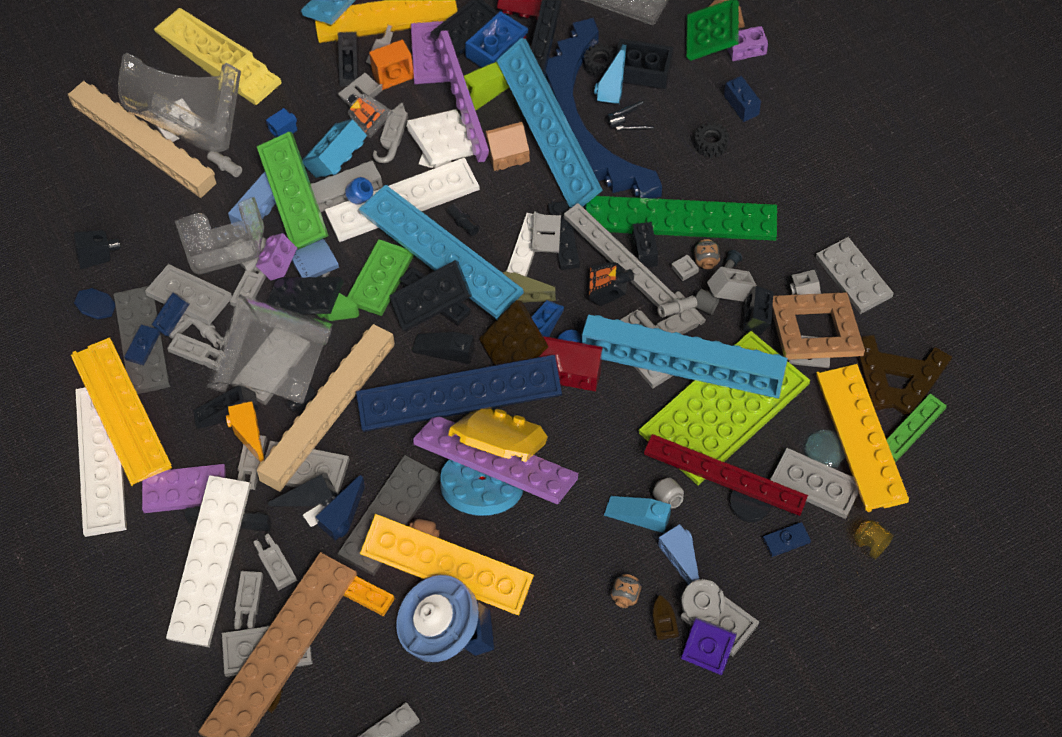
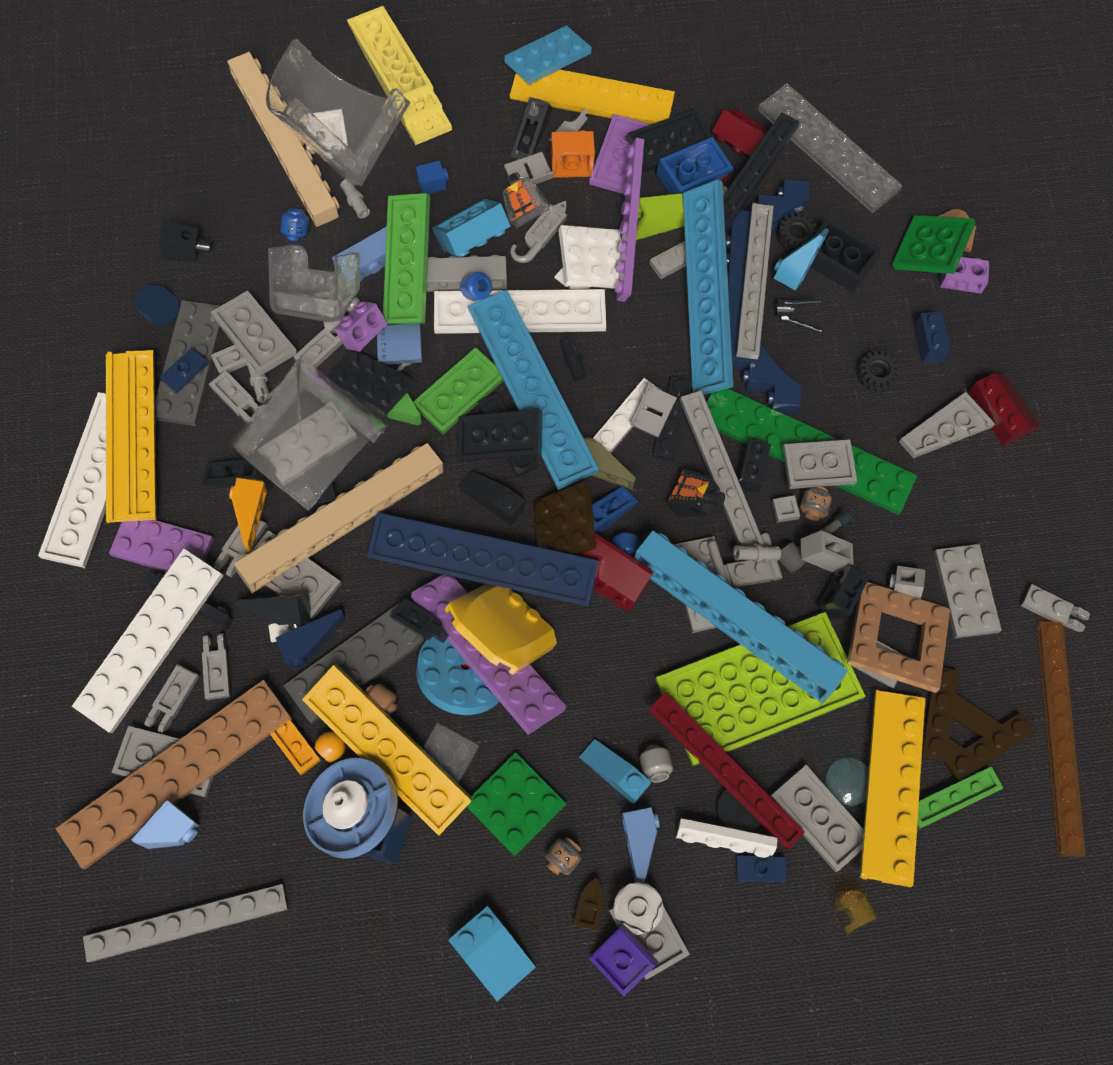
camera: 15 degrees right, 10 degrees up
(170, 314) = (224, 348): dark blue plate -> none
(183, 200) = (294, 224): none -> blue head
(292, 695) = (167, 828): none -> light blue slope
(398, 583) = (330, 746): none -> light orange piece
(429, 457) = (419, 621): none -> black hinge
(499, 547) = (450, 751): none -> clear plate
(507, 146) = (654, 295): slope -> none
(509, 115) = (669, 261): none -> light grey plate
(569, 569) = (515, 804): none -> green plate
(584, 106) = (754, 281): none -> light grey plate
(601, 684) = (492, 953): none -> dark azure slope
(696, 222) = (819, 464): none -> light grey plate
(748, 525) = (719, 836): none -> white plate
(784, 160) = (949, 425): none -> light grey wing
(821, 131) = (1004, 407): none -> dark red slope
(927, 262) = (1054, 608): none -> light grey hinge
(975, 355) = (1061, 740): none -> clear orange plate

